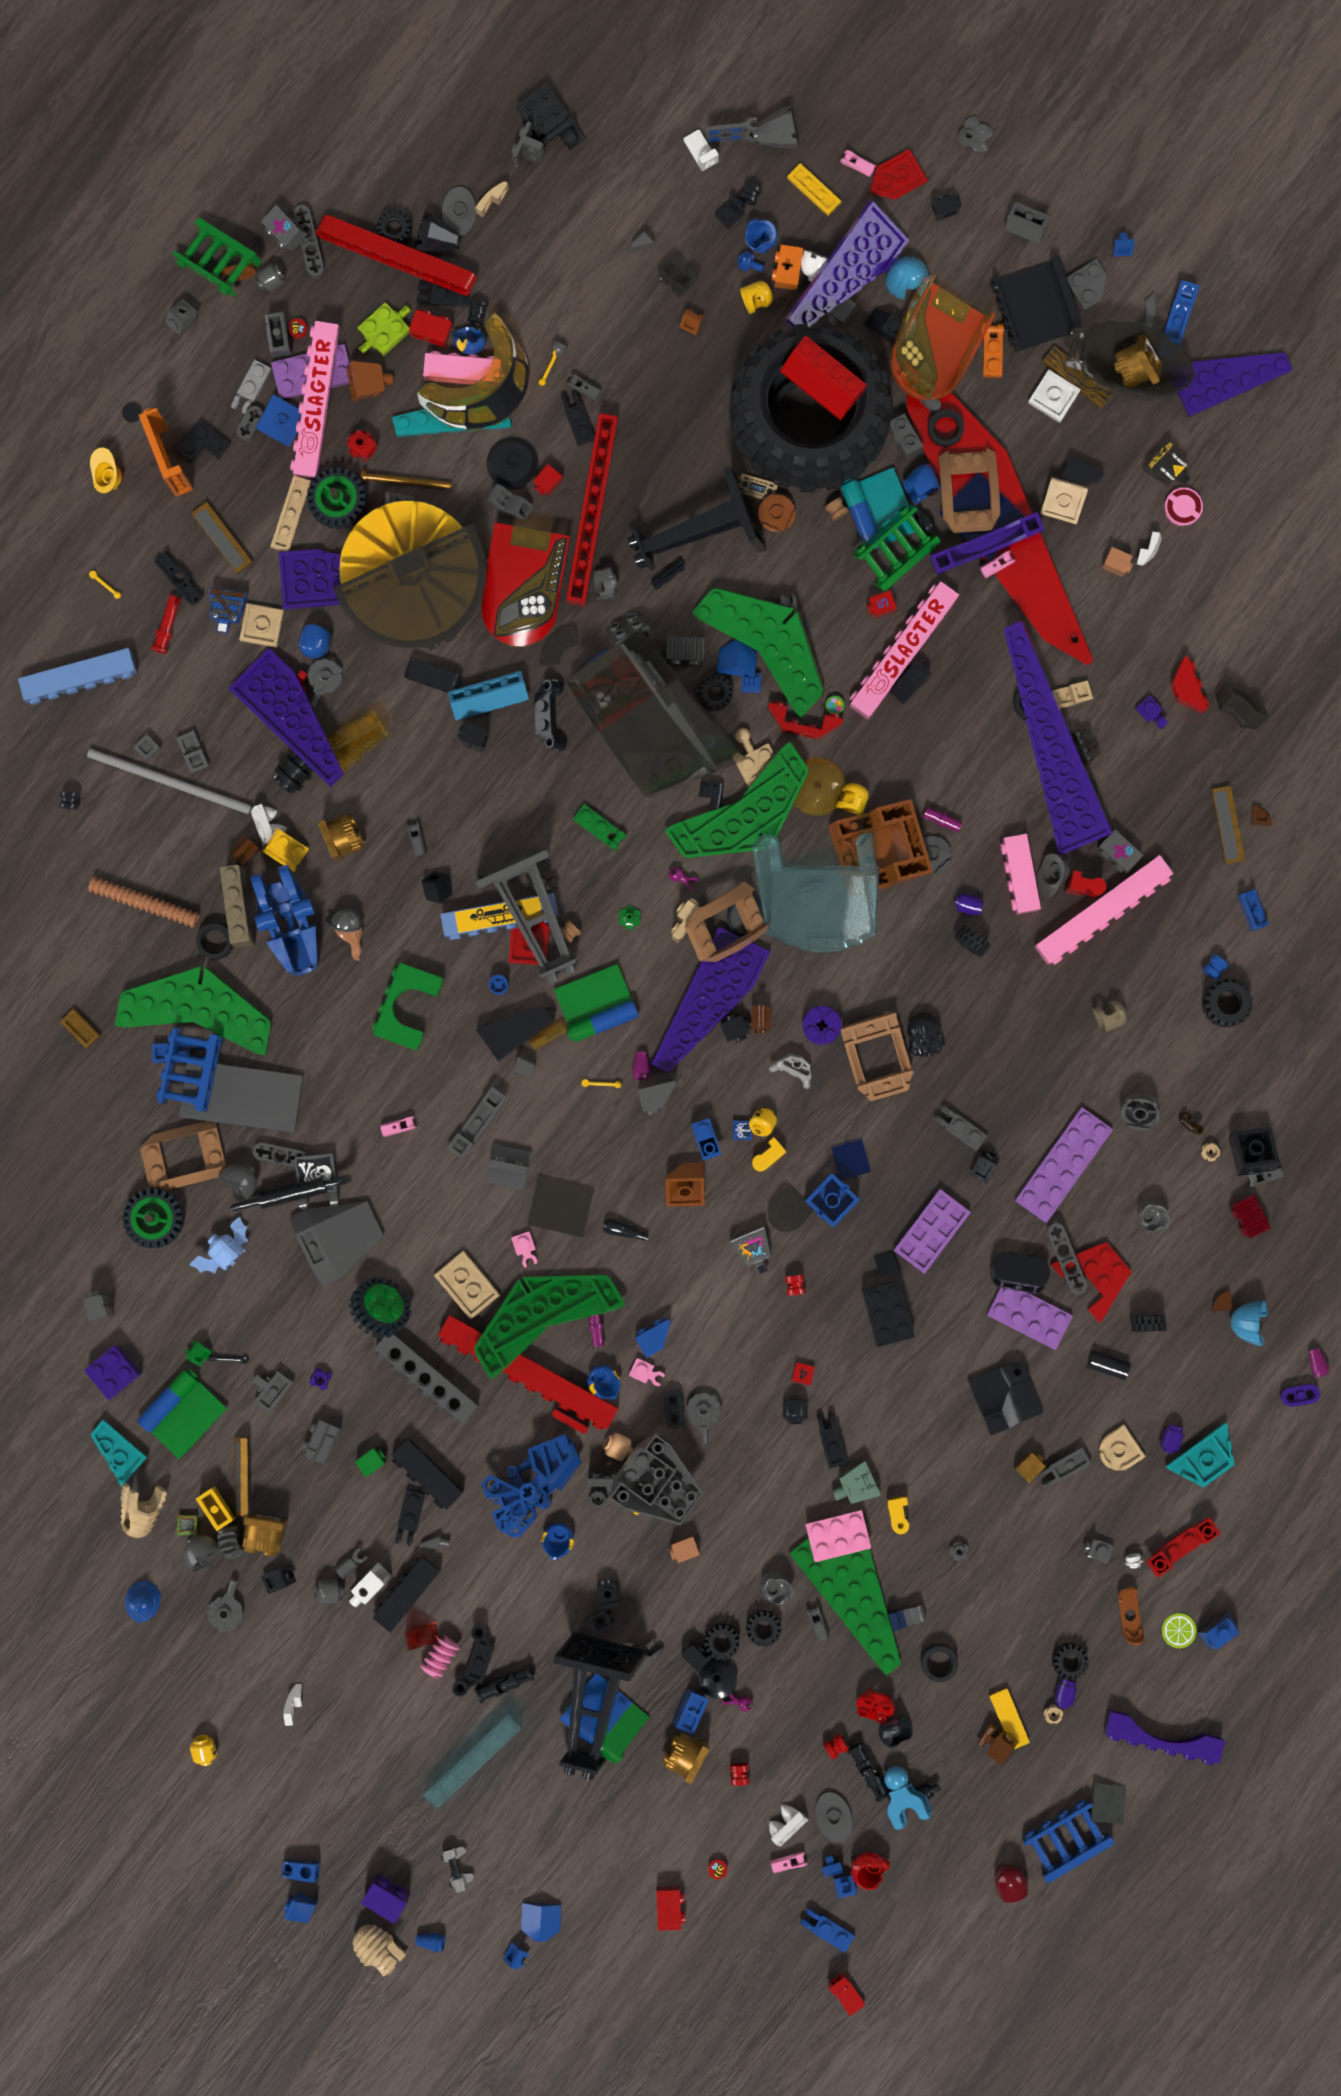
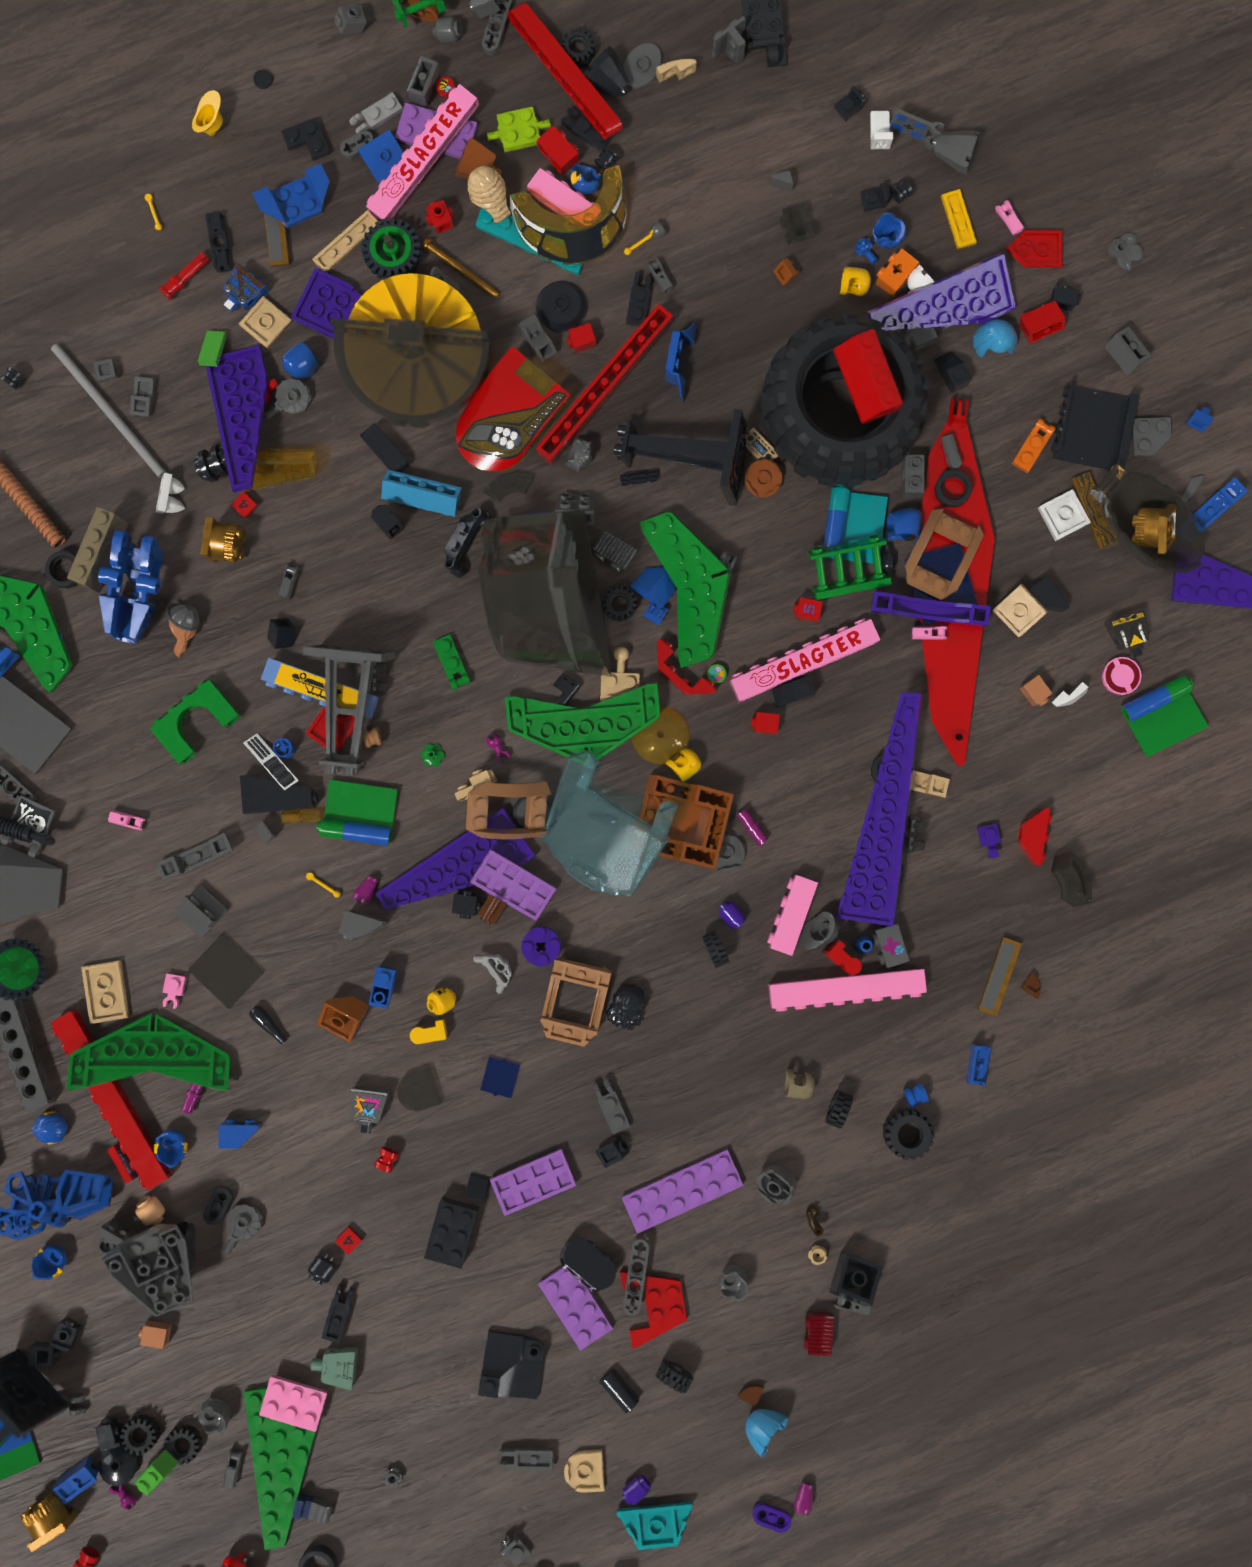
camera: 35 degrees right, 0 degrees up
(77, 676) = (82, 275): medium blue brick -> none
(174, 476) = (259, 118): orange panel -> none
(227, 501) = (296, 200): none -> blue piece
(230, 674) = (212, 348): none -> bright green tile
(244, 851) = (134, 507): reddish brown brick -> none
(285, 849) = (169, 525): yellow plate -> none
(338, 795) = (244, 505): none -> red tile
(395, 400) = (489, 192): none -> tan hair
(489, 1427) = (50, 1127): none -> blue hair
(494, 1003) = (270, 761): none -> sticker
(641, 458) = (671, 373): none -> blue piece
(643, 1371) = (212, 1157): bright pink plate -> none
(661, 142) = (850, 104): none -> black bracket
(741, 1130) = (419, 996): blue tile -> none
(755, 1661) = (156, 1472): none -> bright green brick
(766, 986) = (513, 884): none -> medium lavender plate
(832, 1200) = (460, 1104): blue brick -> none
(836, 509) = (817, 505): medium nougat wheel -> none
(896, 1513) = (356, 1415): yellow leg -> none
(902, 723) = (765, 723): none -> red brick
(936, 342) = (987, 408): windscreen -> none
(938, 239) = (1042, 322): none -> red brick
(1030, 1466) = (497, 1440): pearl gold brick -> none
(1093, 868) = (858, 945): none -> blue cone
(1156, 1016) = (839, 1109): none -> black tyre
(1239, 520) = (1164, 716): none -> green door

